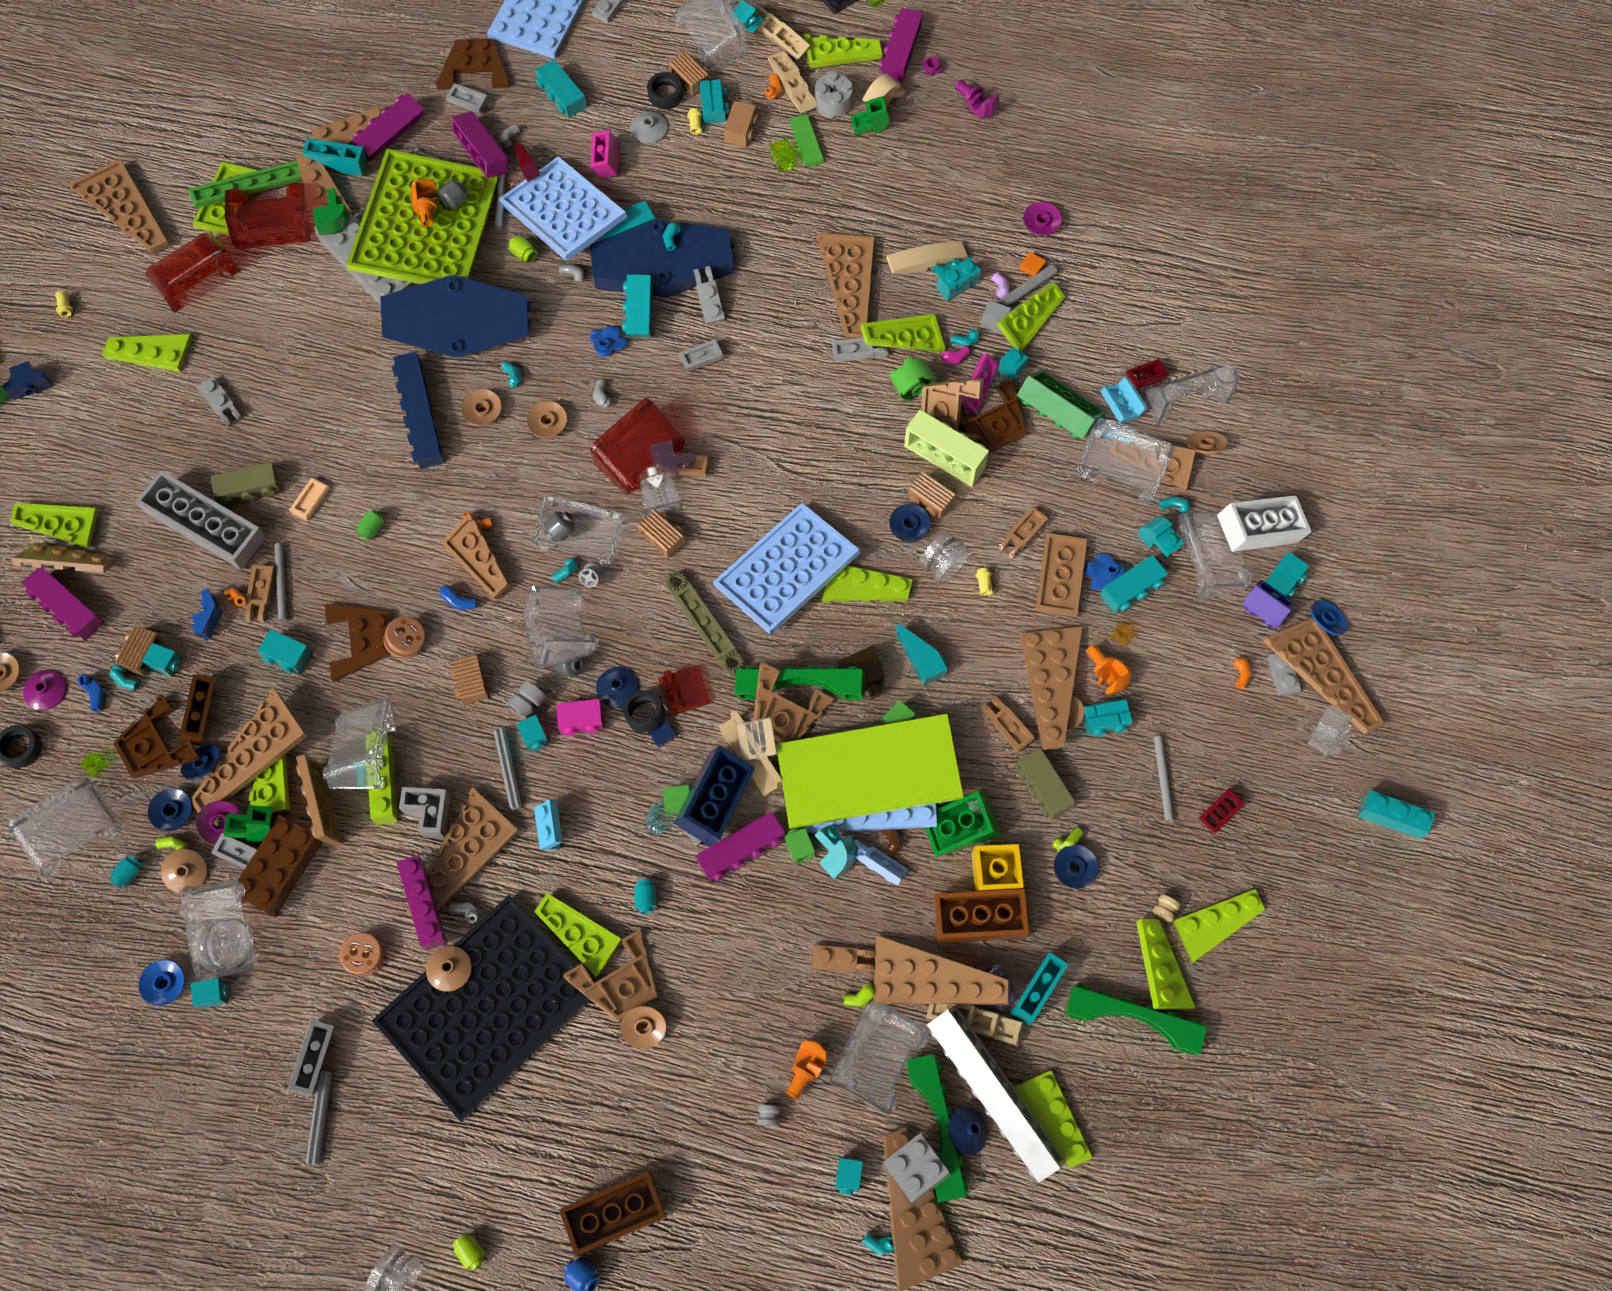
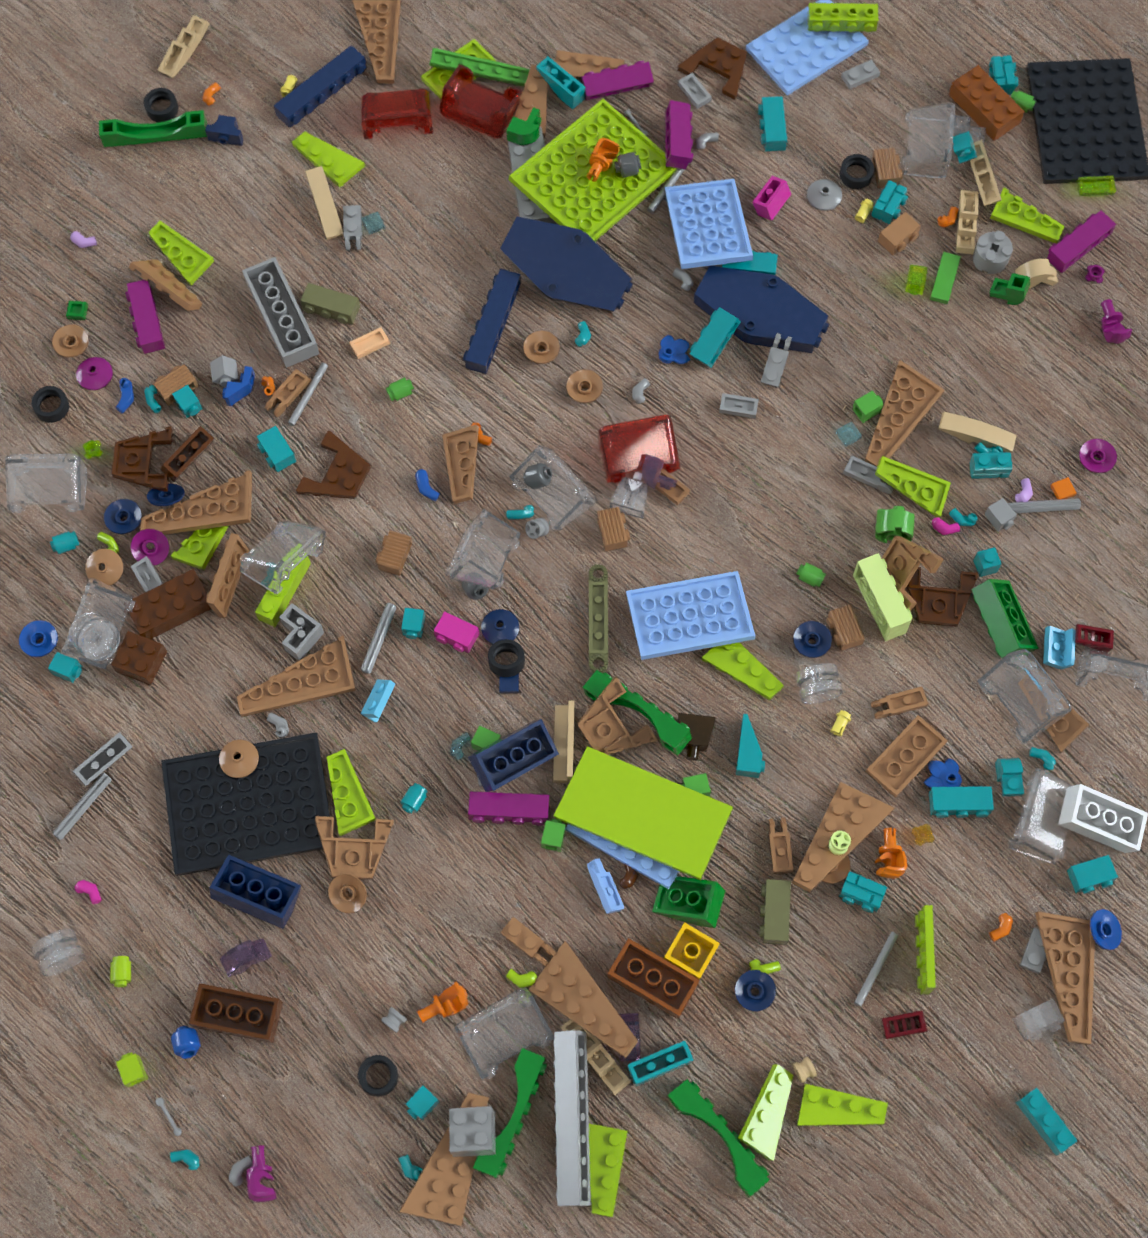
camera: 35 degrees right, 0 degrees up
(96, 287) = (320, 86): none -> dark blue brick
(175, 393) = (324, 203): none -> tan slope
(180, 608) = (224, 370): none -> light grey brick
(237, 385) = (373, 223): none -> clear light blue tile
(250, 826) = (169, 563): green brick -> none
(280, 936) = (139, 658): none -> reddish brown brick
(362, 954) = (186, 708): nougat head -> none
(382, 1192) = (89, 888): none -> dark pink arm
(404, 637) = (368, 491): nougat head -> none
(422, 903) = (250, 697): magenta brick -> none
(522, 249) = (656, 239): lime brick -> none
(526, 163) = (702, 174): dark red slope -> none
(526, 700) = (425, 594): light grey wheel -> none
(552, 1084) = (255, 891): none -> dark blue slope
(584, 1153) = (244, 955): none -> clear purple brick
(671, 230) = (777, 292): teal arm -> none
(683, 690) = (548, 661): clear red hinge -> none
(756, 739) = (573, 732): clear piece -> none
(771, 1178) = (362, 1075): none -> black tyre
(815, 324) = (848, 434): none -> clear light blue tile
(816, 290) = (867, 406): none -> bright green brick
(841, 851) = (580, 860): brick -> none
(868, 467) = (810, 574): none -> bright green brick
(967, 1130) = (525, 1128): dark blue dish -> none
(985, 370) = (953, 559): dark pink plate -> none
(1027, 318) = (1024, 532): lime wing -> none
(1064, 682) = (841, 838): none -> yellowish green wheel
(1197, 732) = (925, 943): none -> lime plate
(1207, 442) = (1106, 723): medium nougat dish -> none
(1268, 604) = (1061, 886): brick -> none

